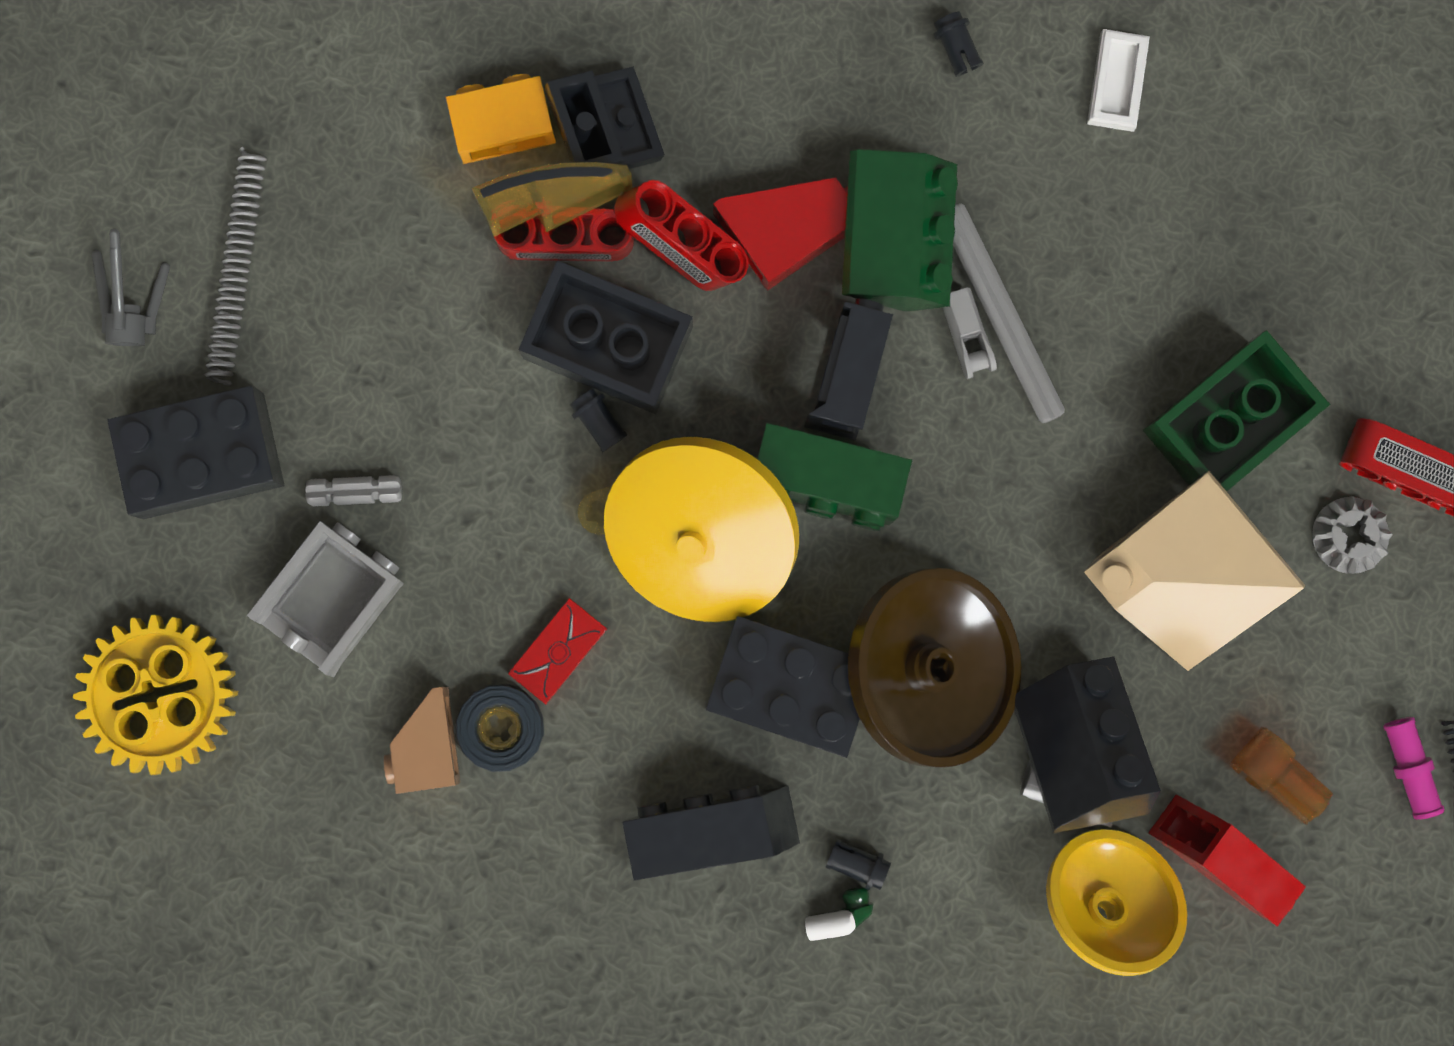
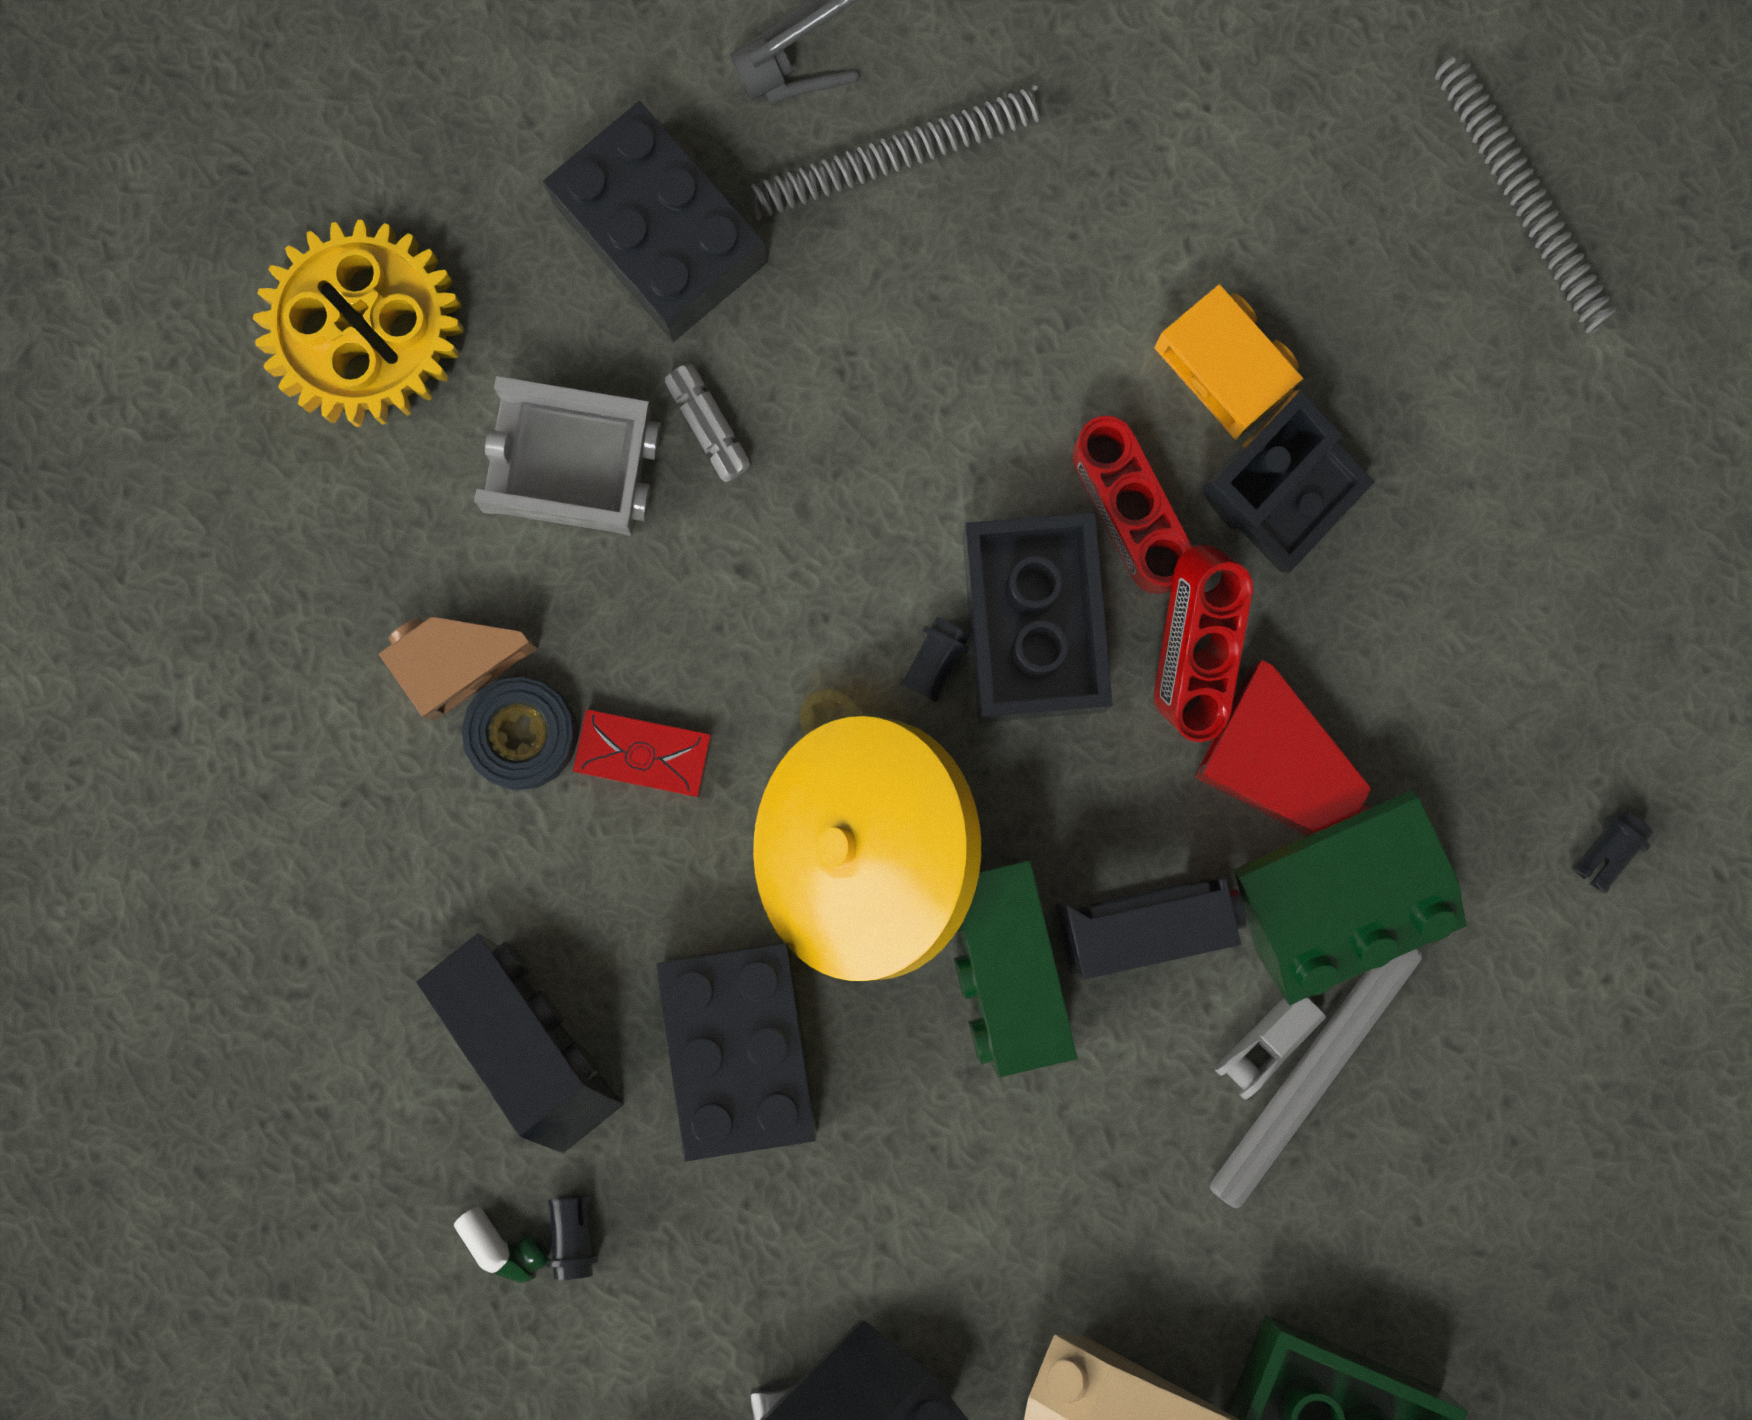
camera: 70 degrees right, 0 degrees up
(550, 192) = (1171, 462): clear yellow slope -> none
(934, 667) = (845, 1211): dark brown dish -> none
(1118, 80) = (1675, 1067): white tile -> none

